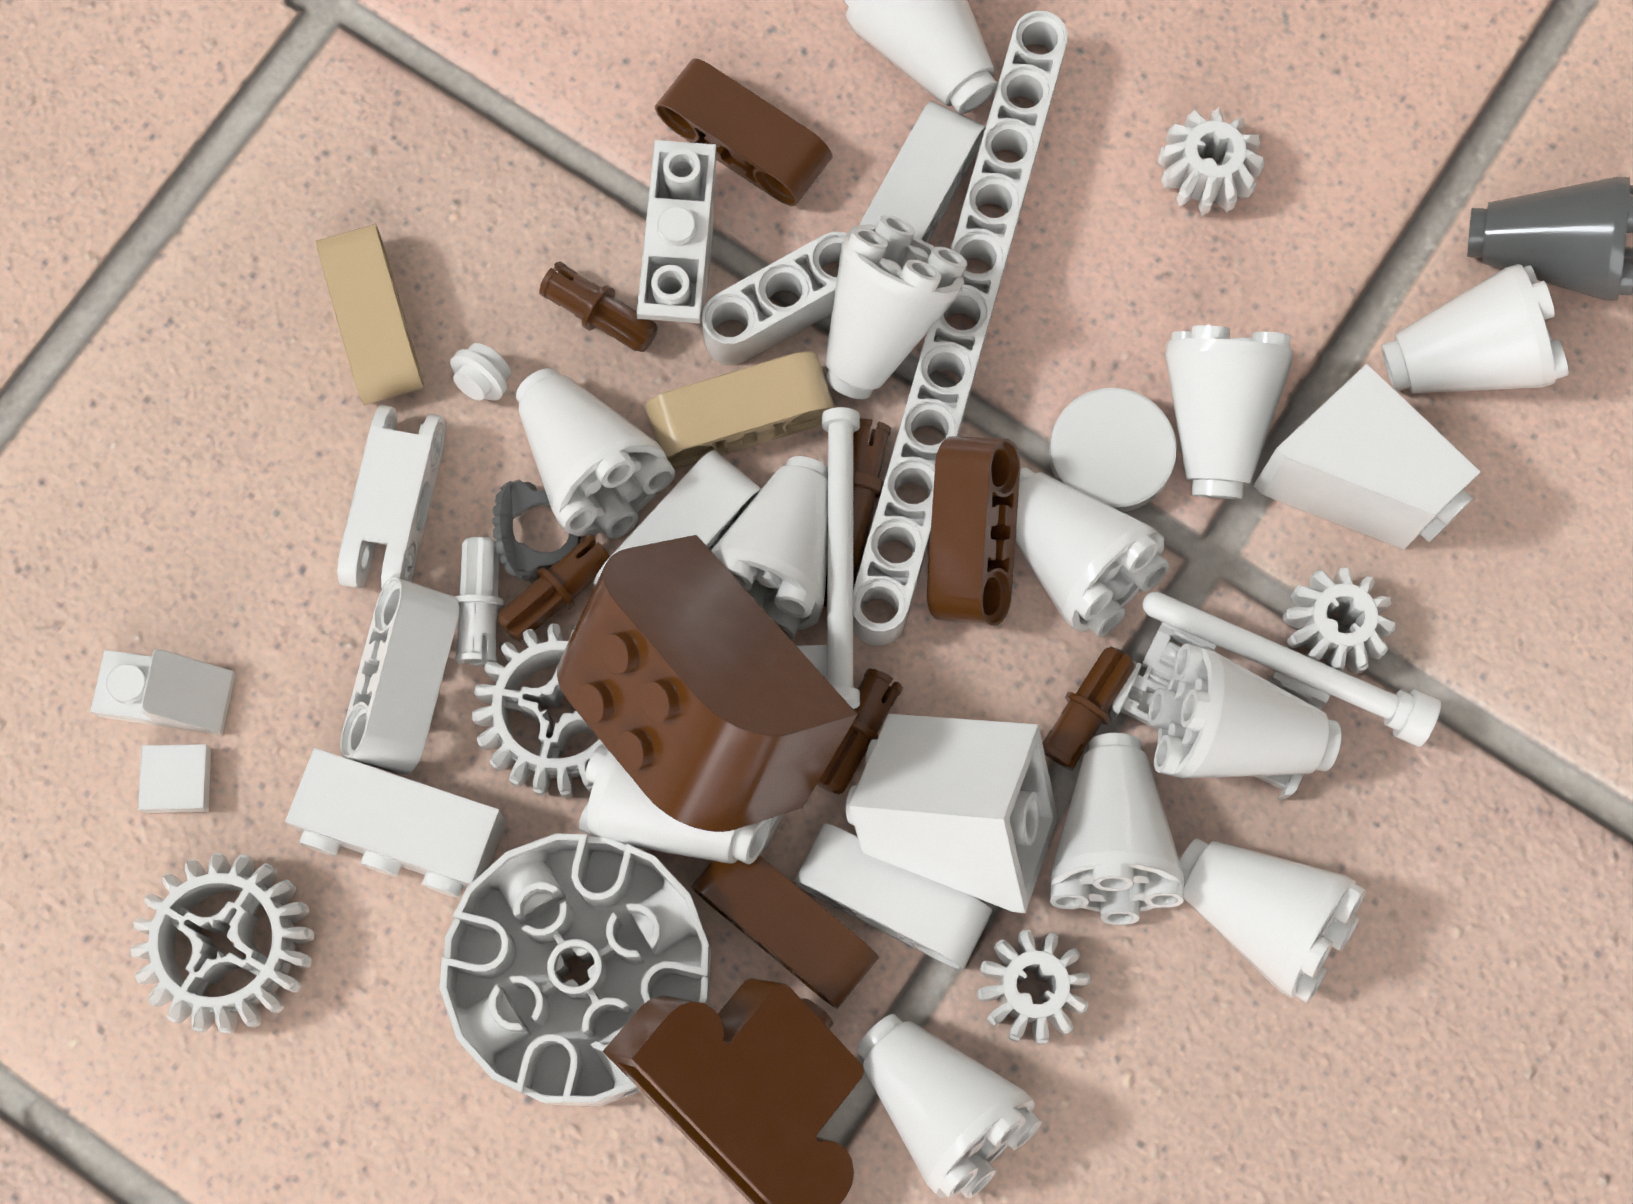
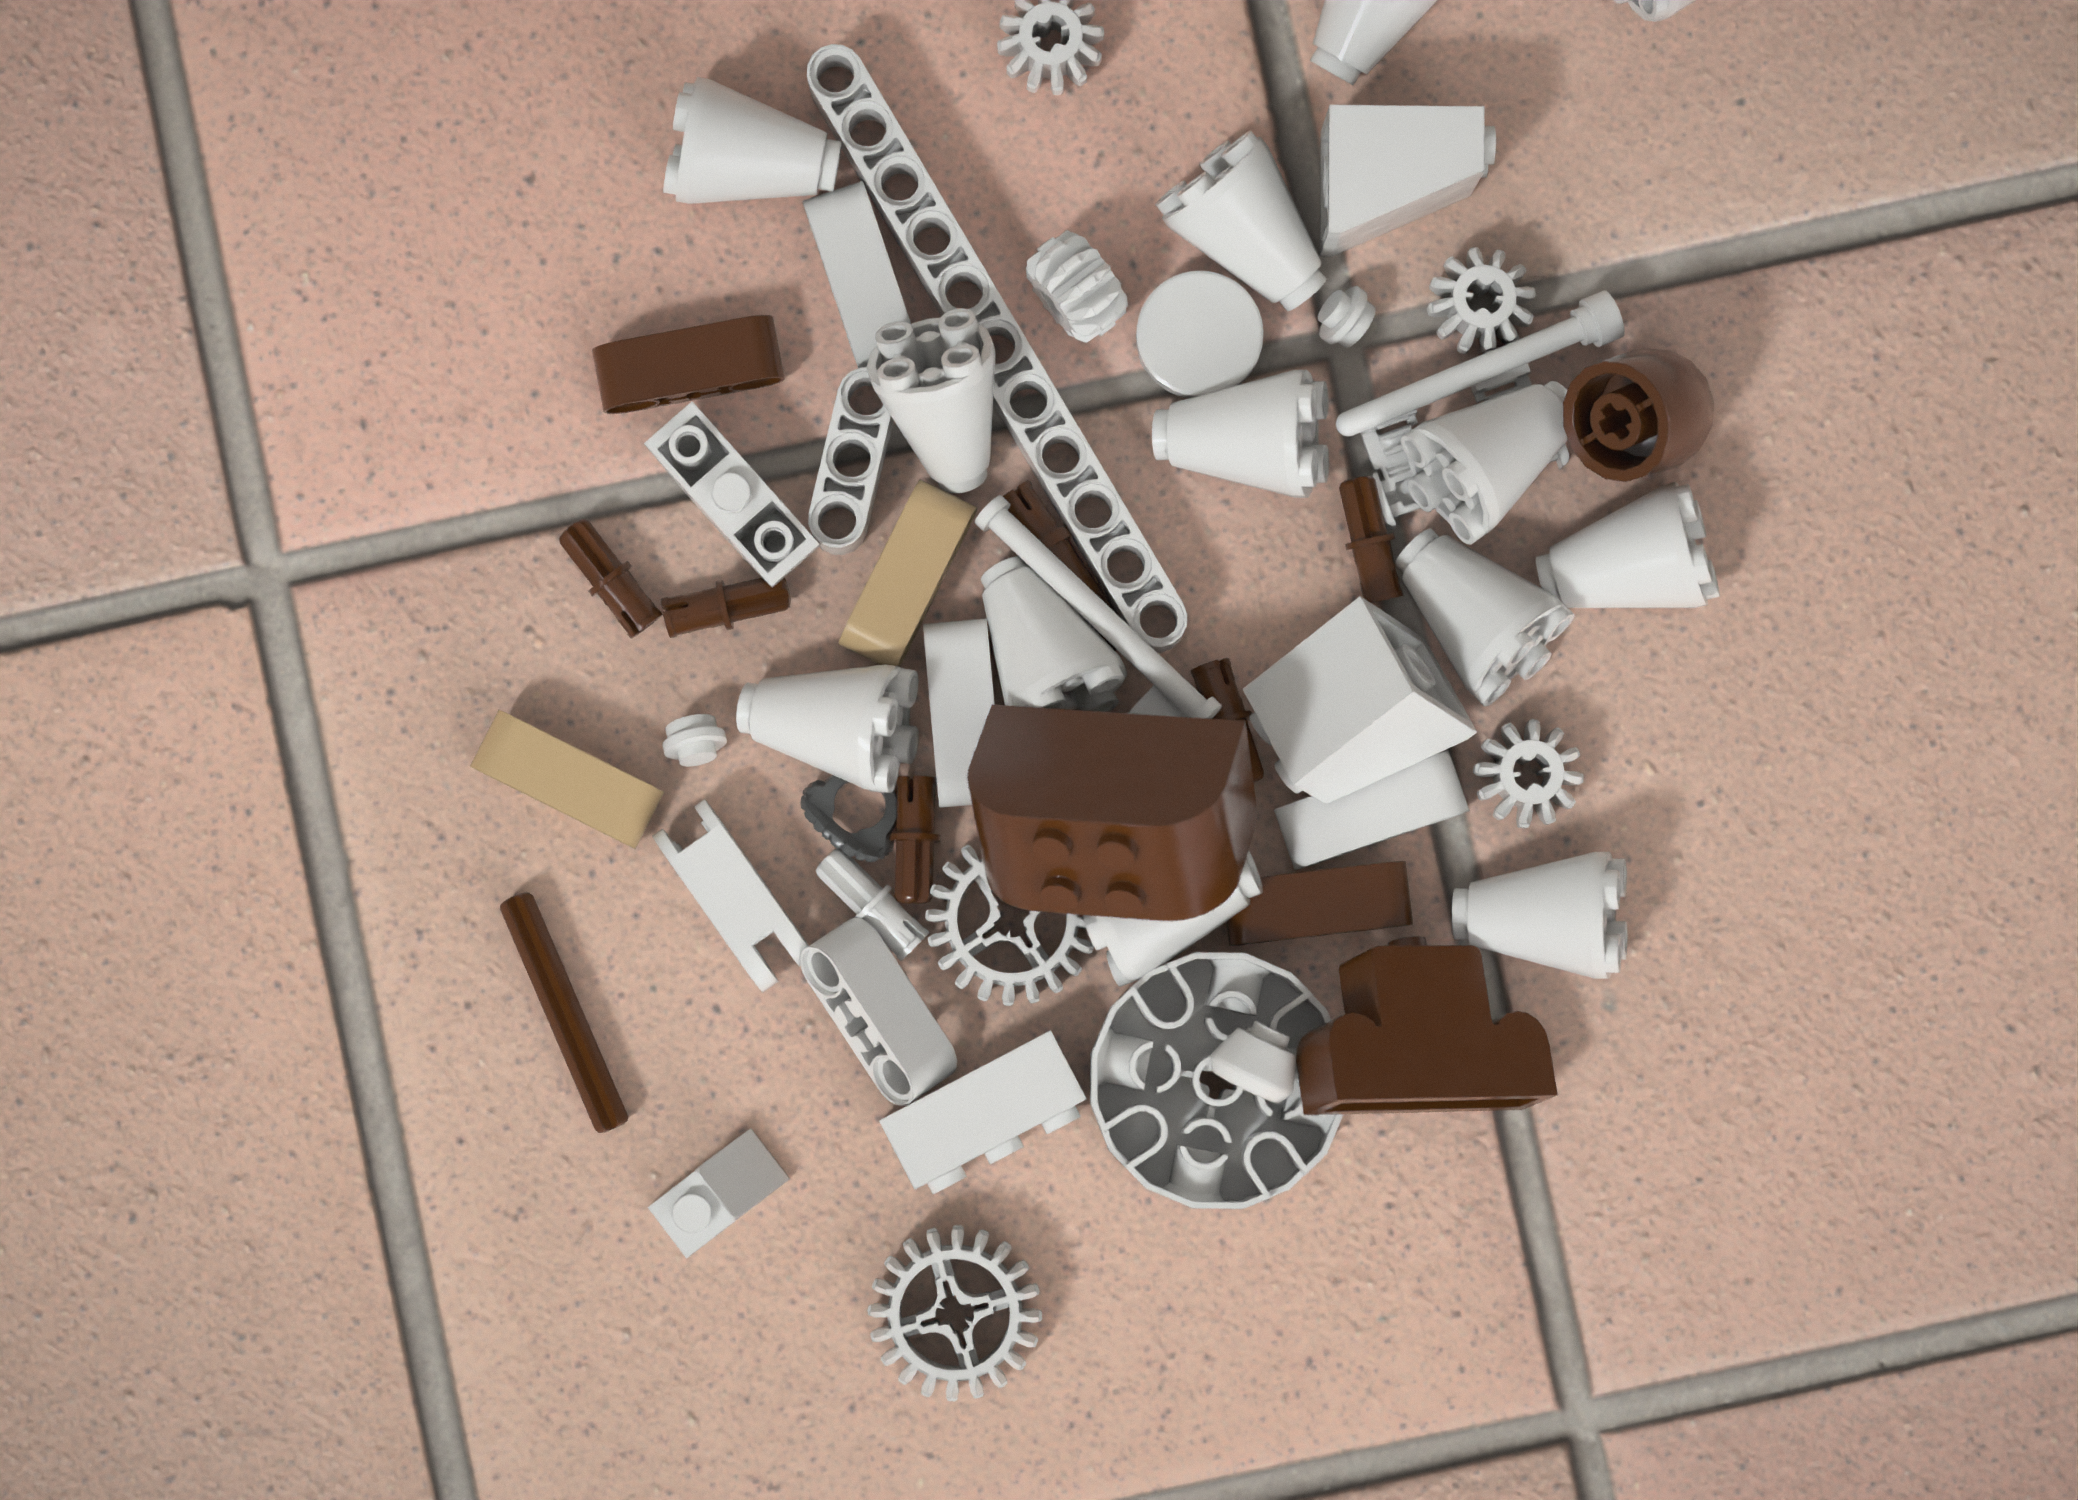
camera: 50 degrees left, 10 degrees up
(174, 778) = (794, 1241): white tile -> none
(198, 466) = (564, 1012): none -> reddish brown axle
(541, 217) = (609, 578): none -> reddish brown axle
(610, 977) = (1257, 1062): none -> white cone
(973, 530) = (1168, 498): reddish brown beam -> none
(1059, 330) = (1076, 286): none -> white gear
(1229, 537) = (1345, 317): none -> white plate
(1379, 803) = (1638, 413): none -> reddish brown brick

